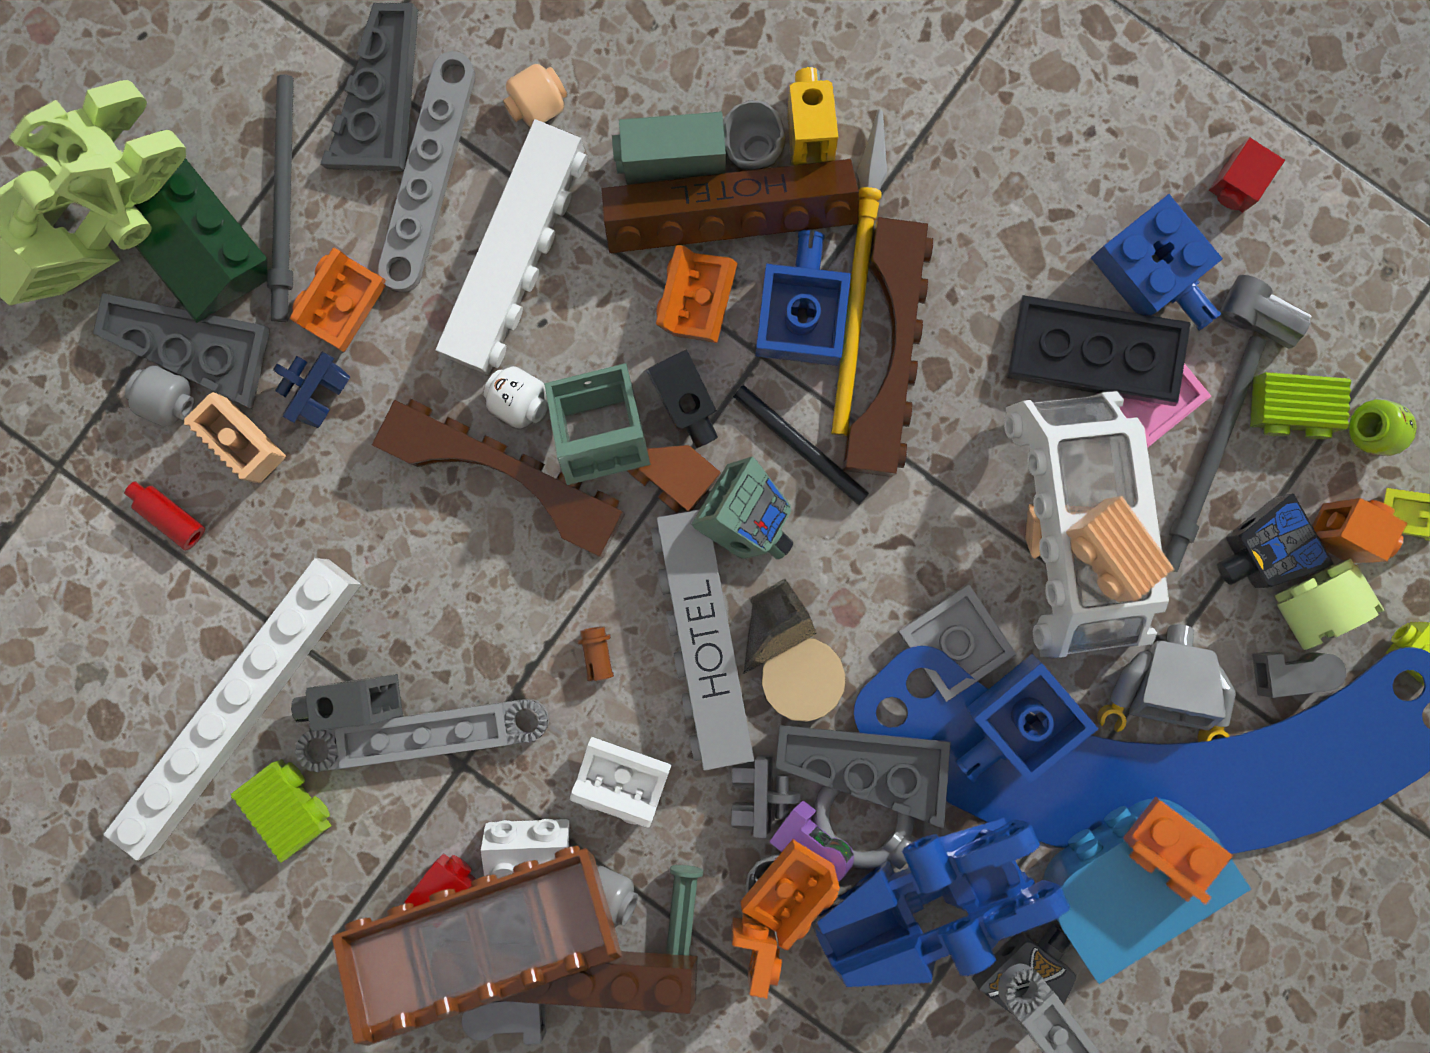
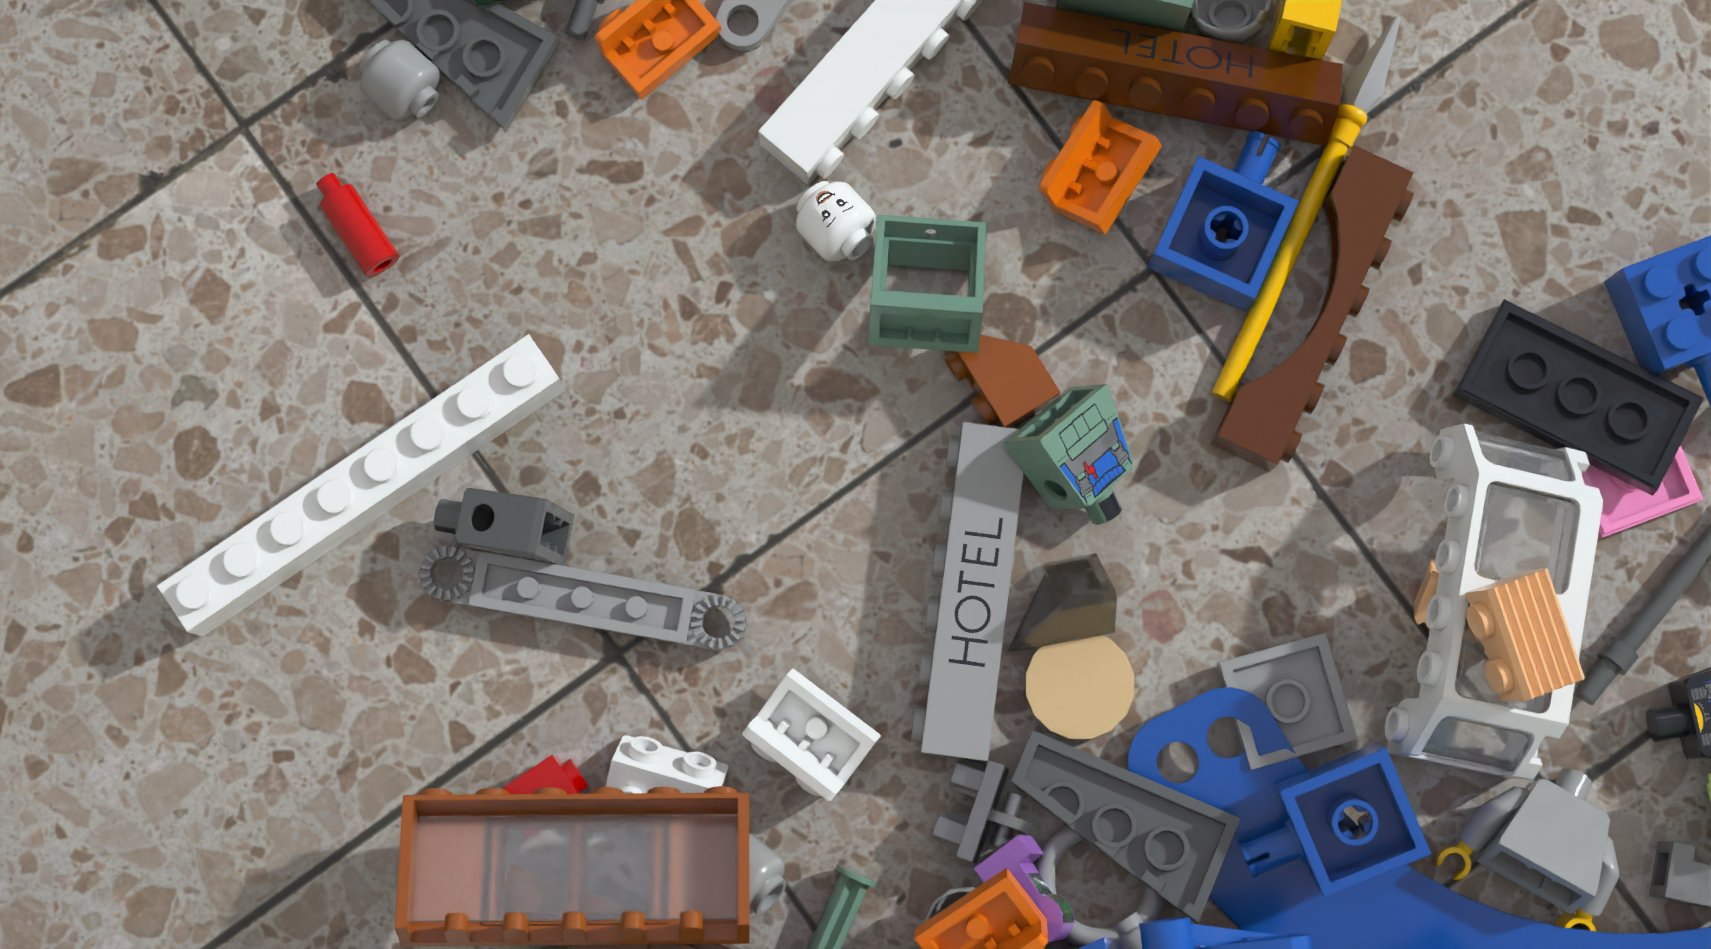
camera: 15 degrees right, 5 degrees down
(234, 438) = (476, 160): light nougat brick -> none
(282, 809) = (381, 632): lime brick -> none
(302, 406) = (607, 115): dark blue hips -> none
(423, 441) = (706, 238): reddish brown arch -> none
(596, 653) = (831, 567): dark orange pin -> none
(673, 380) = (1047, 260): black torso -> none
(801, 444) = (1169, 394): black bar -> none

